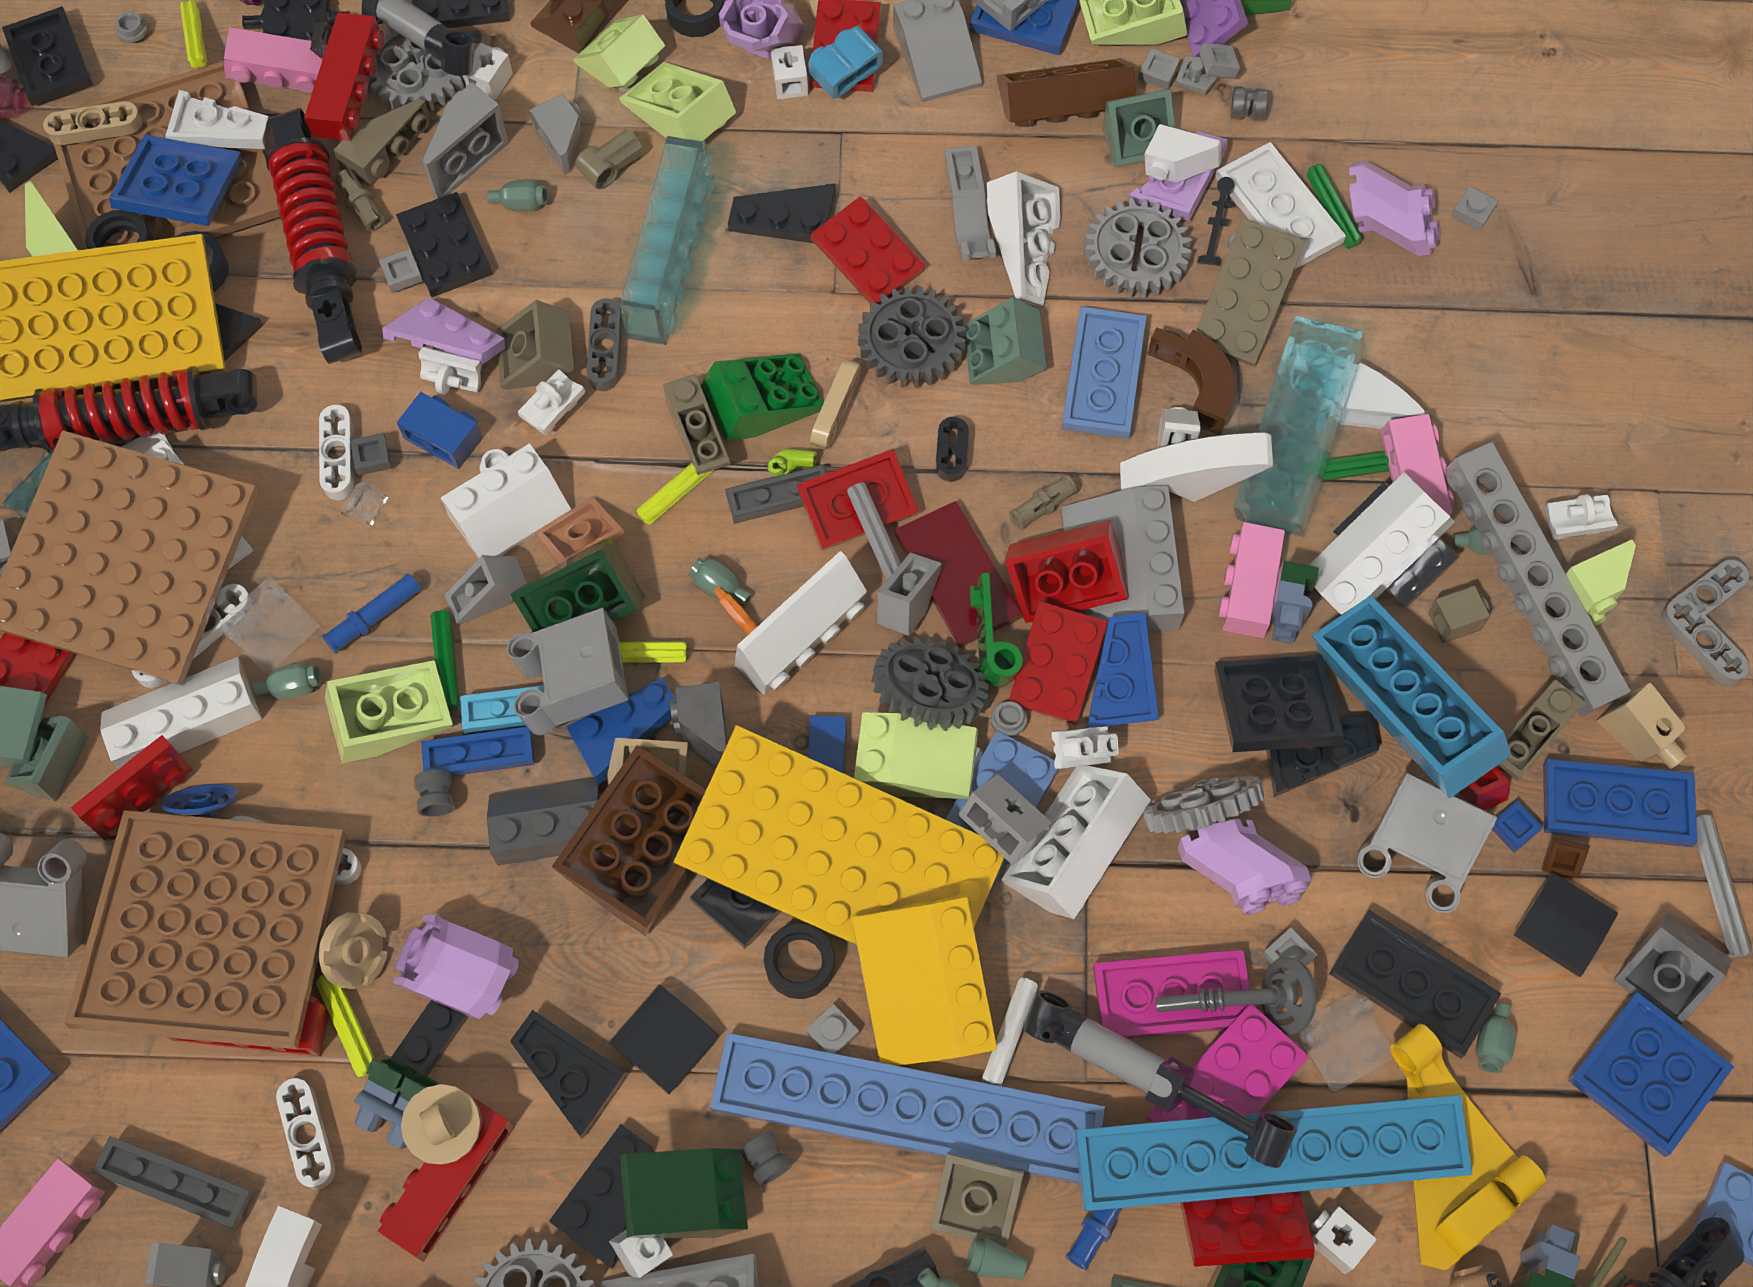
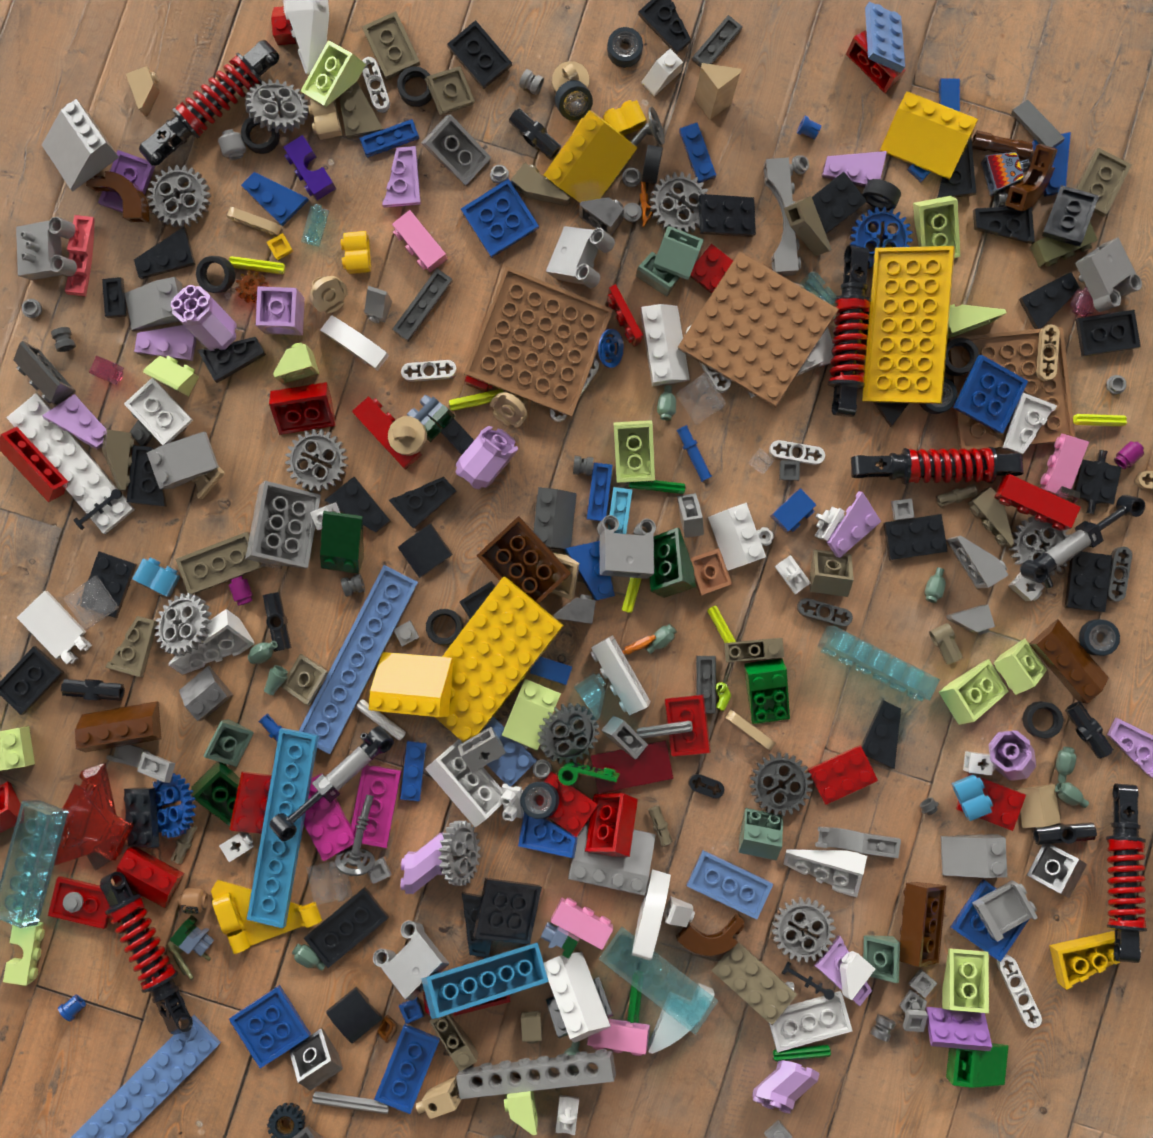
camera: 105 degrees right, 20 degrees up
(844, 653) = (592, 692): none -> clear light blue slope
(879, 123) = (929, 806): none -> dark grey plate
(1063, 677) = (529, 796): none -> wheel
(1086, 944) = (413, 771): none -> blue plate

